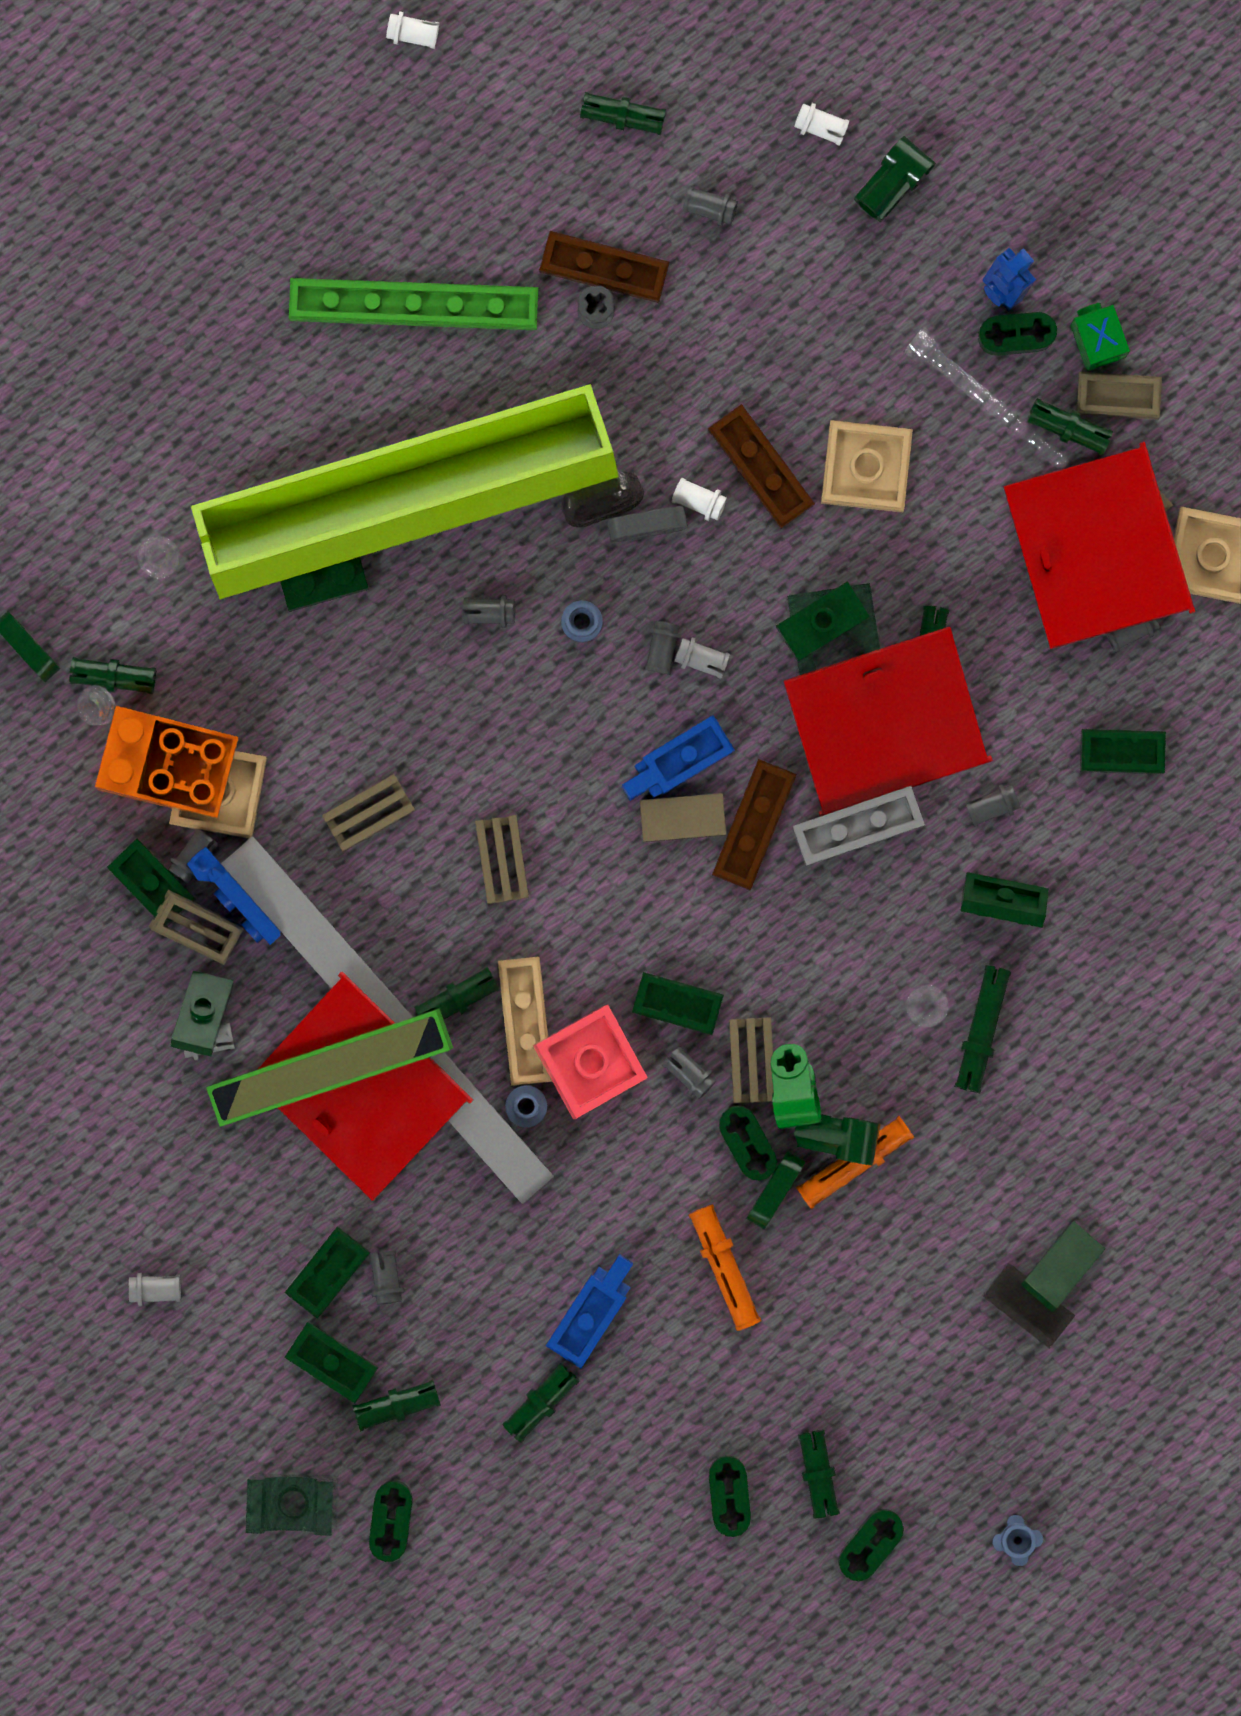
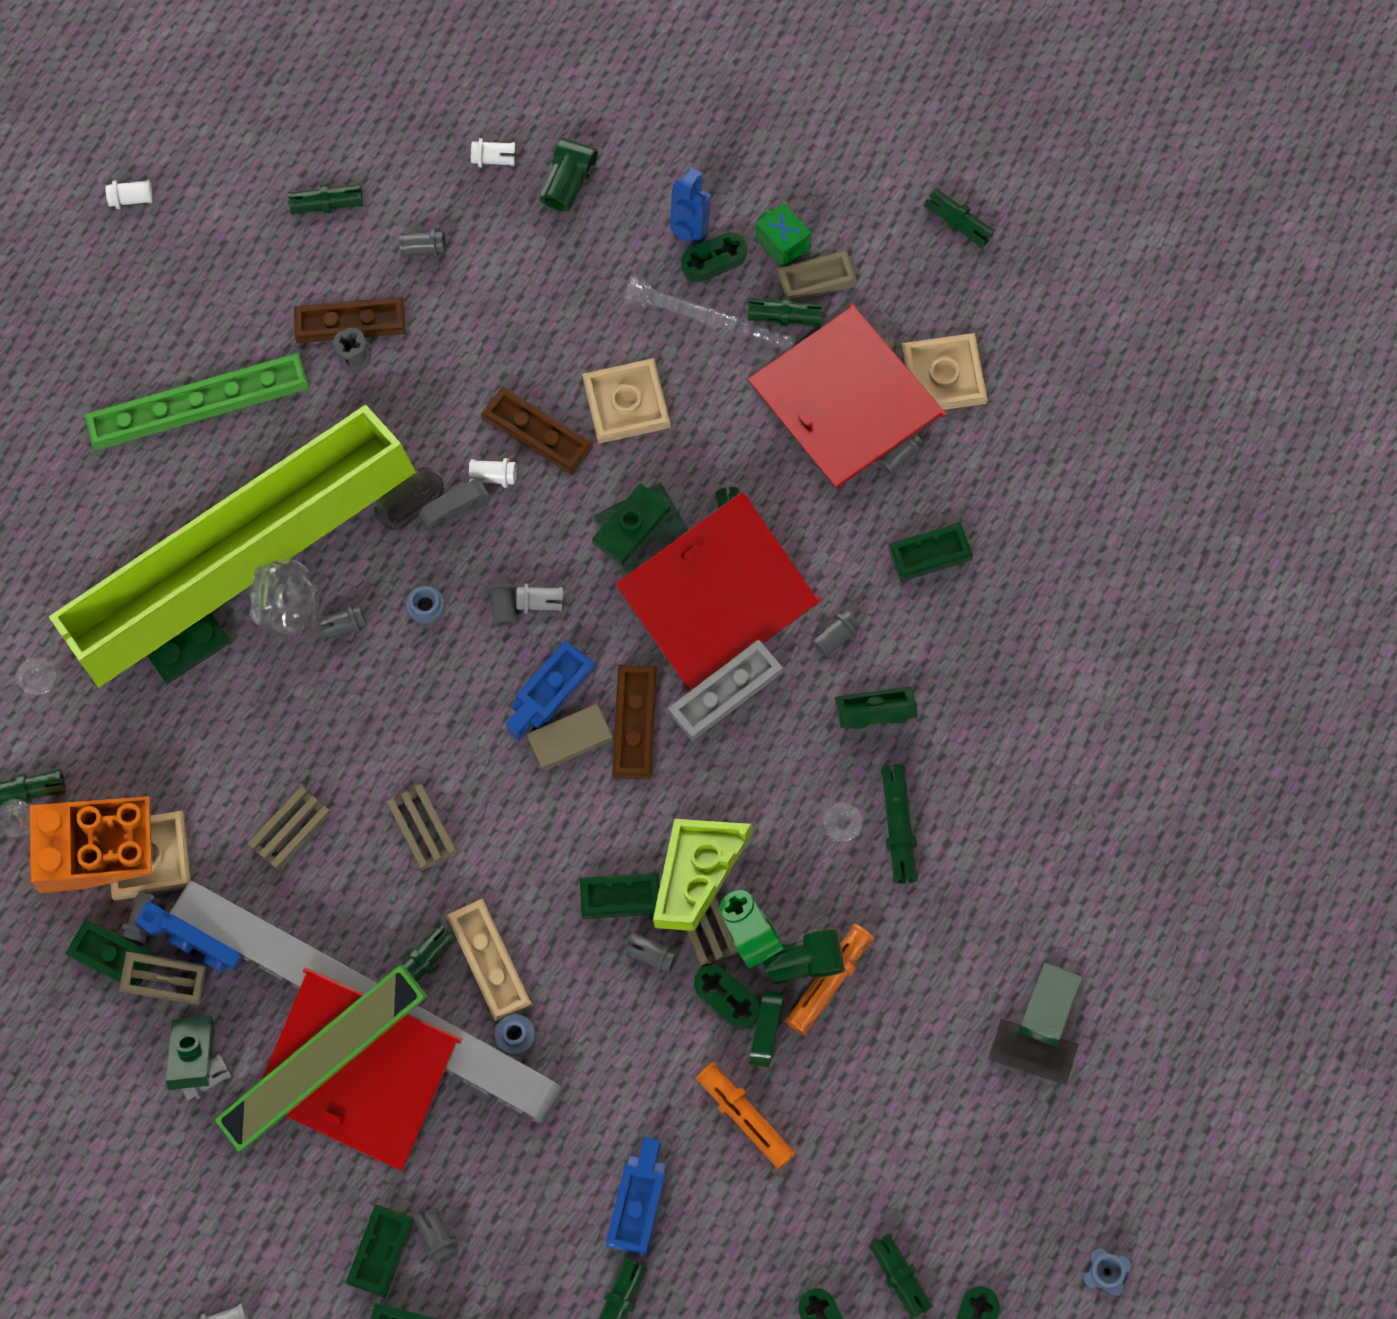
camera: 15 degrees left, 15 degrees down
(420, 573) = (267, 600): none -> clear plate
(590, 1061) = (558, 972): coral plate -> none
(762, 1006) = (695, 869): none -> lime wing

